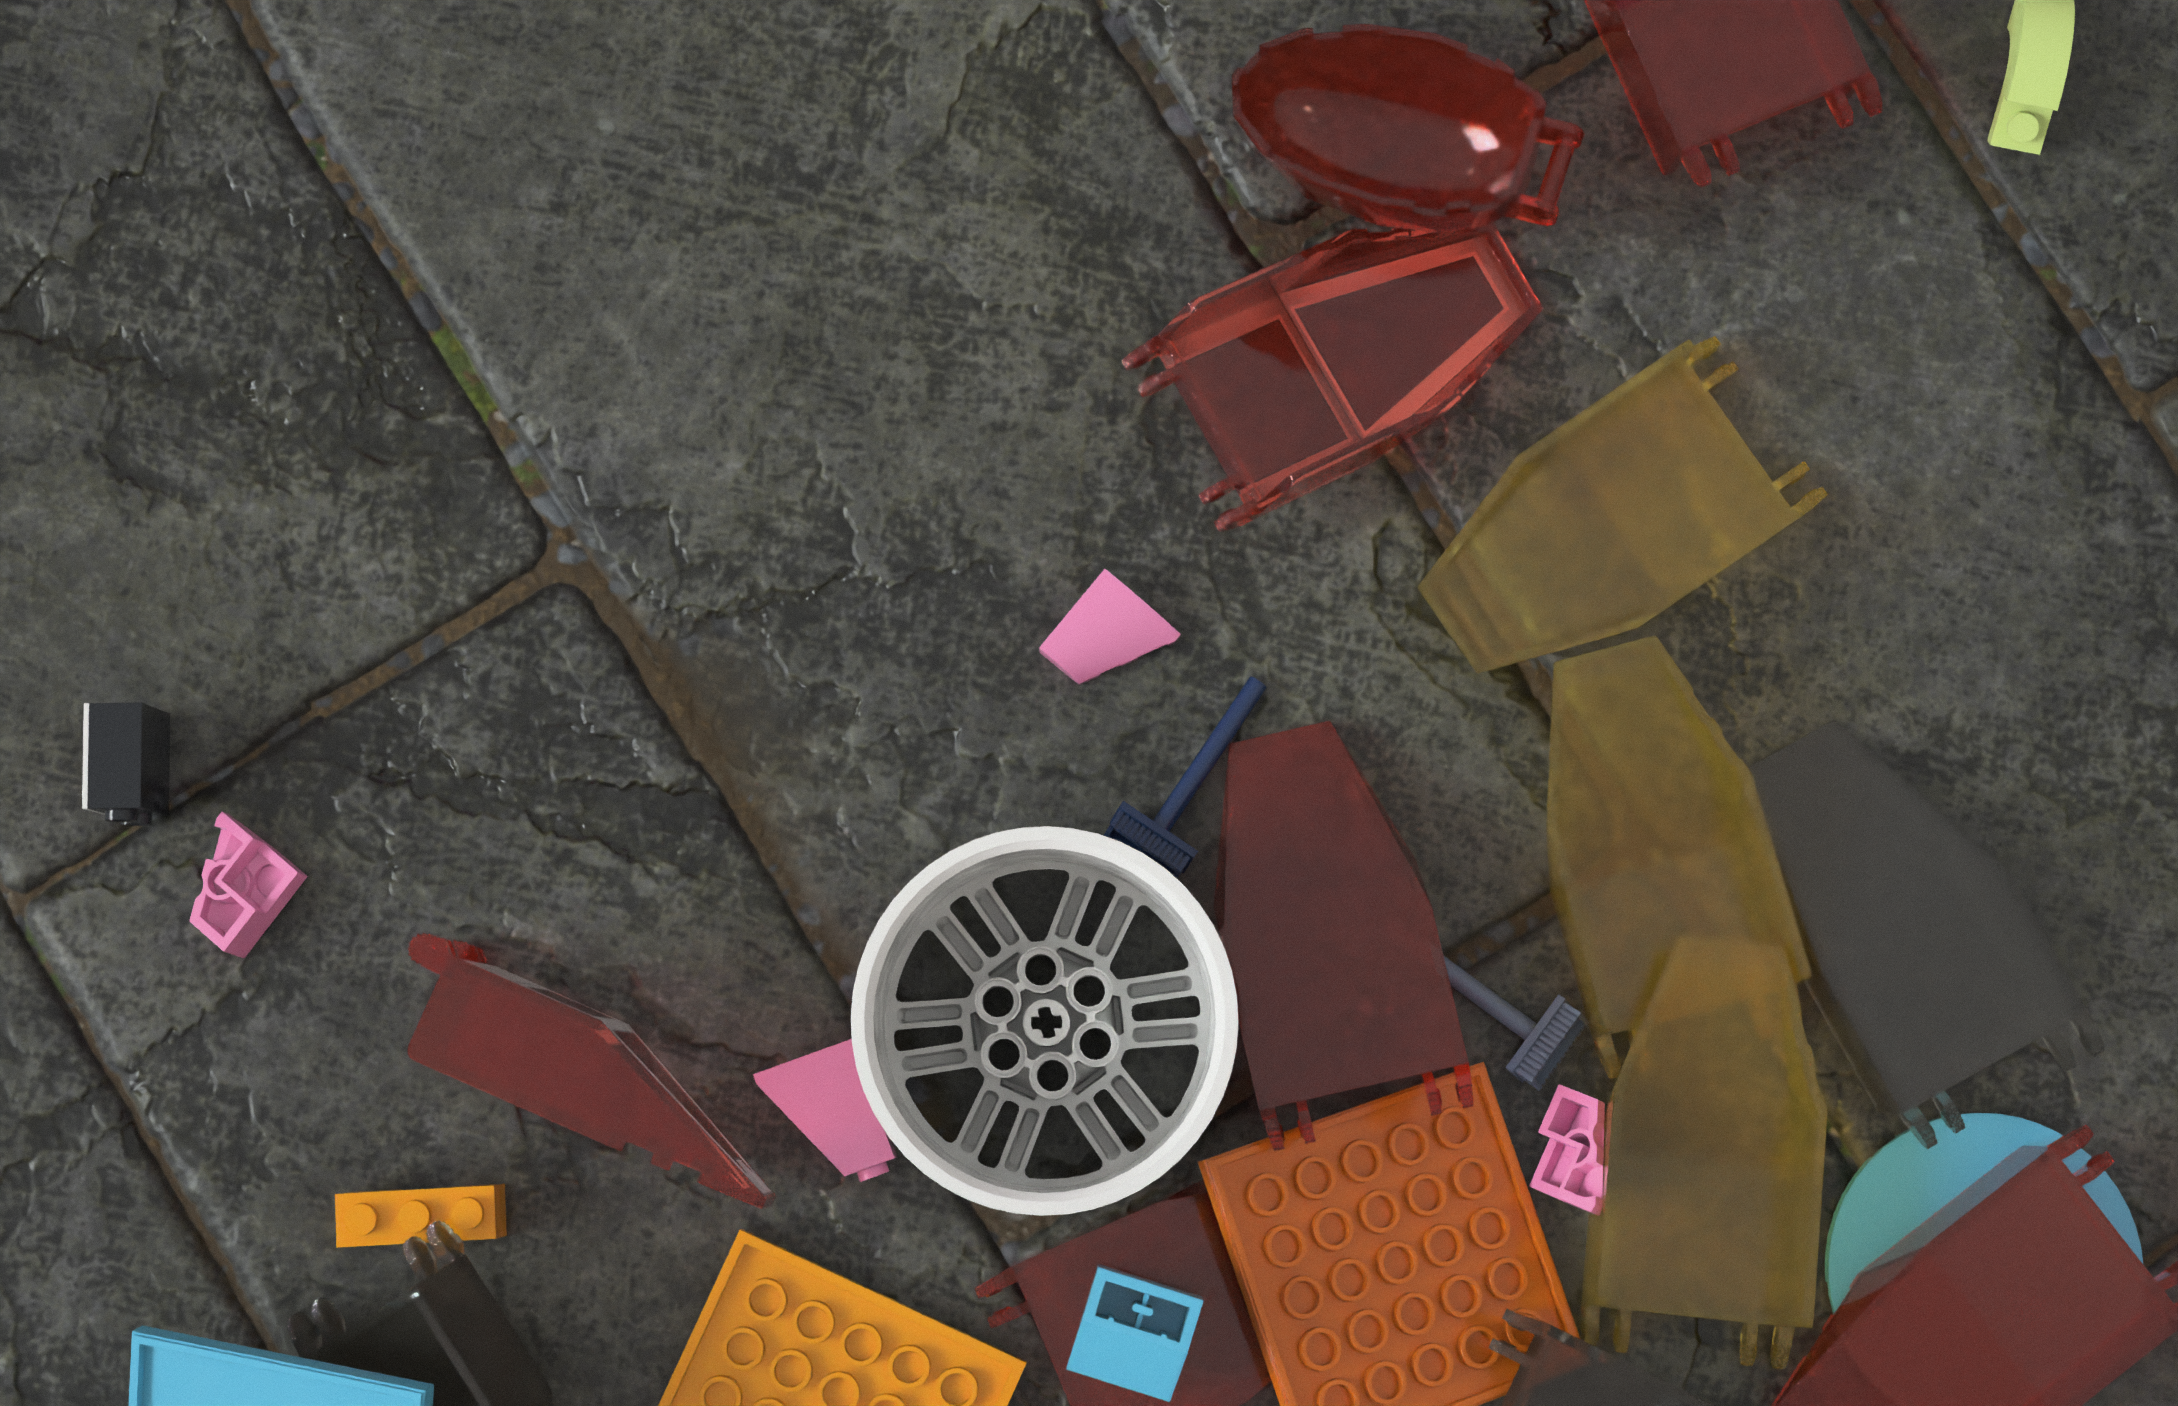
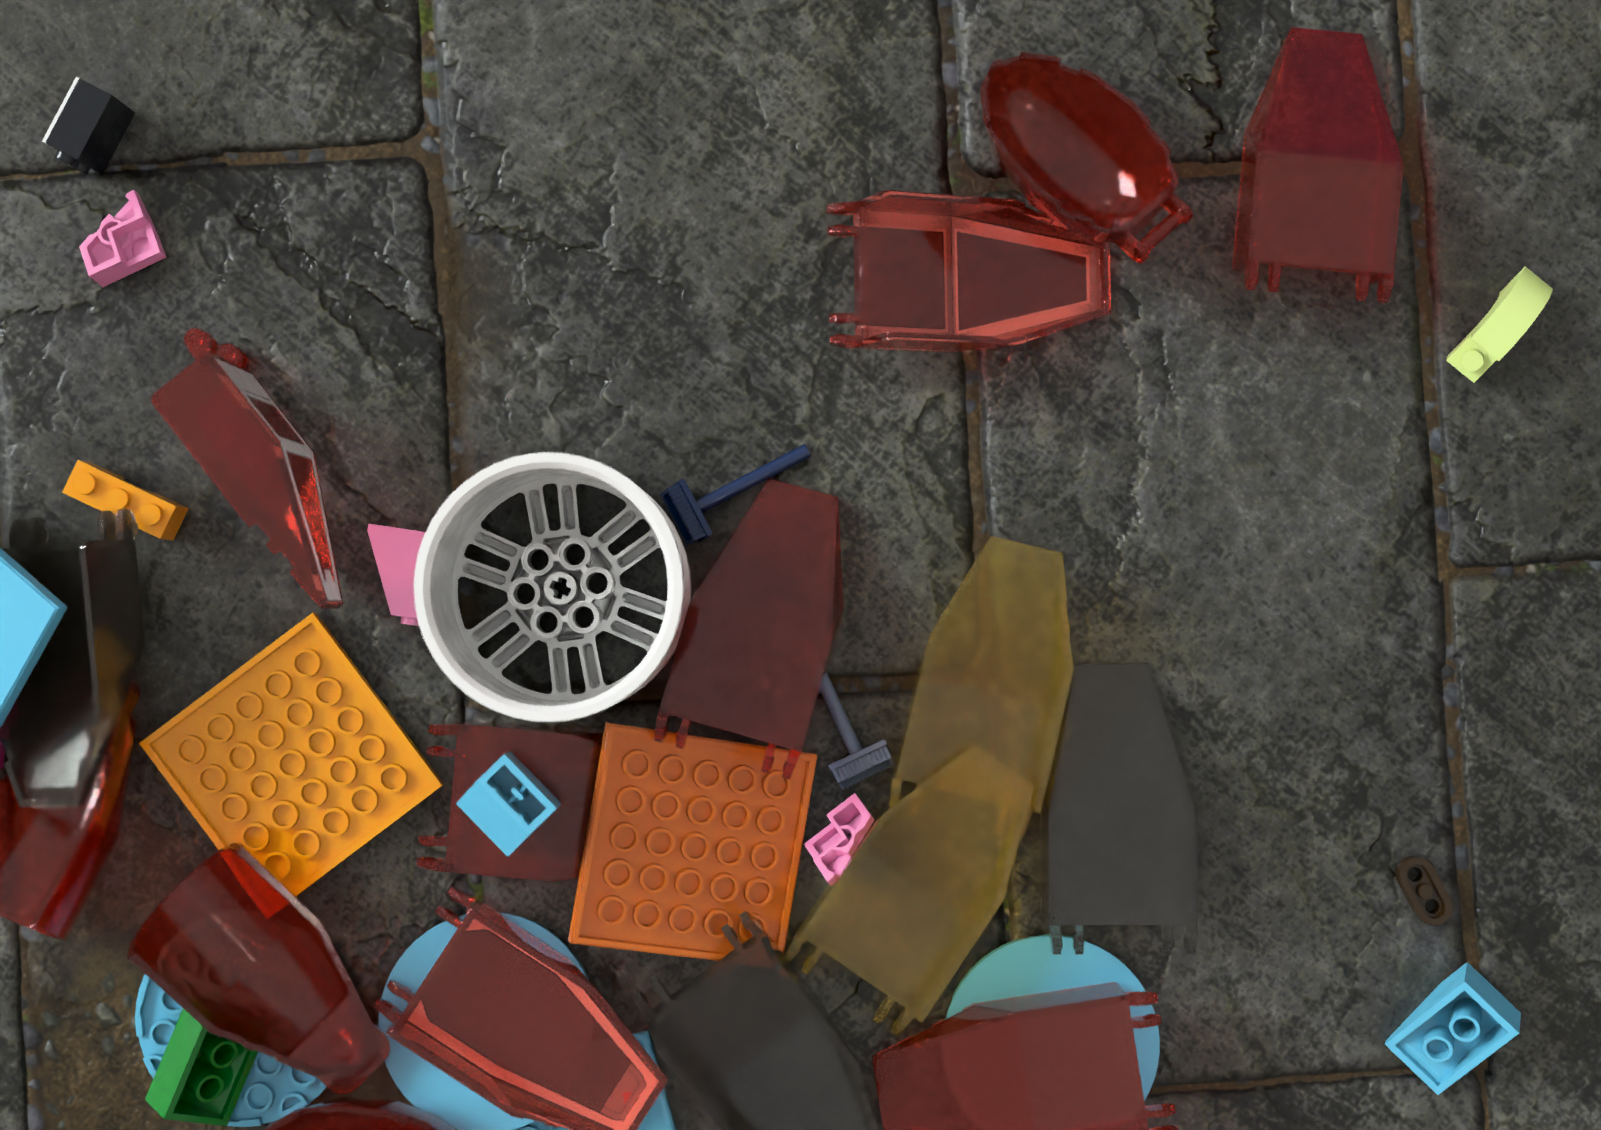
camera: 30 degrees right, 5 degrees up
(1105, 631) = (730, 368): bright pink slope -> none
(1610, 520) = (1076, 466): clear yellow windscreen -> none

